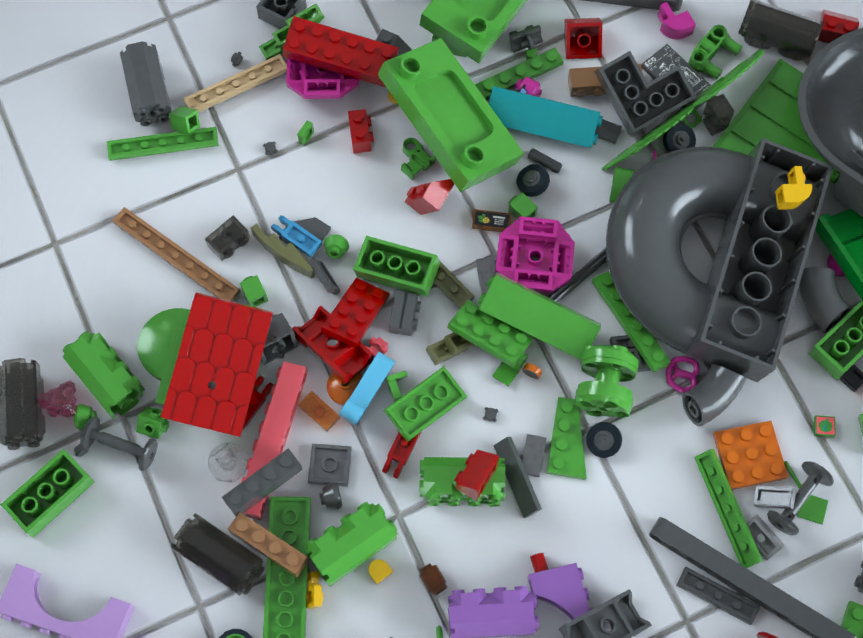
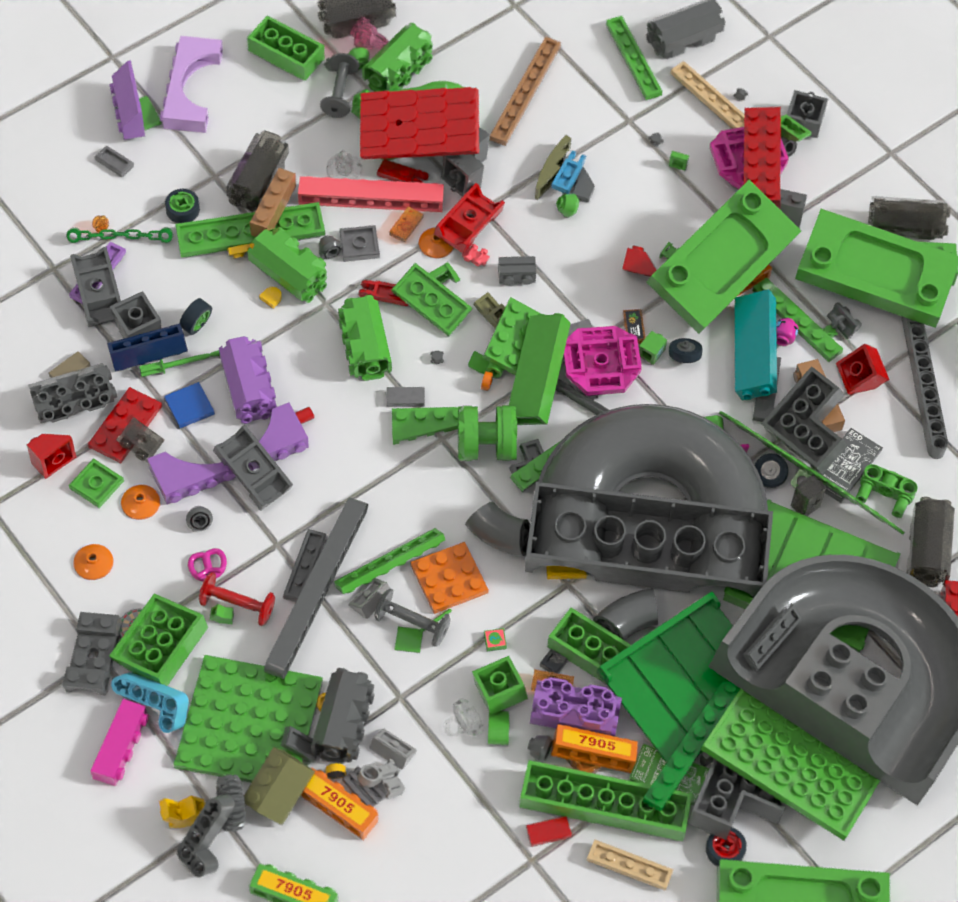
camera: 75 degrees right, 10 degrees down
(184, 119) = (660, 65): bright green brick -> none
(227, 238) = (553, 123): clear smoke brick -> none
(253, 291) = (507, 153): bright green brick -> none
(262, 482) = (325, 185): dark grey brick -> none
(324, 276) = (536, 202): dark grey tile -> none
(355, 312) = (505, 229): red plate -> none
(359, 130) = (693, 201): red brick -> none
(366, 389) = (431, 251): medium azure beam -> none
(396, 266) = (559, 251): bright green brick -> none
(433, 579) = (271, 335): reddish brown brick -> none
(452, 287) = (560, 297): olive plate -> none
(477, 473) = (364, 331): red slope -> none
(518, 478) = (380, 385): dark grey tile -> none
(544, 160) = (712, 360): dark grey axle -> none
(604, 439) = (432, 448): black wheel -> none
(675, 26) = (907, 452): dark pink brick -> none
(682, 373) = (518, 504): dark pink piece -> none
(774, 497) = (408, 596): tile -> none
(796, 192) = (716, 546): yellow brick -> none

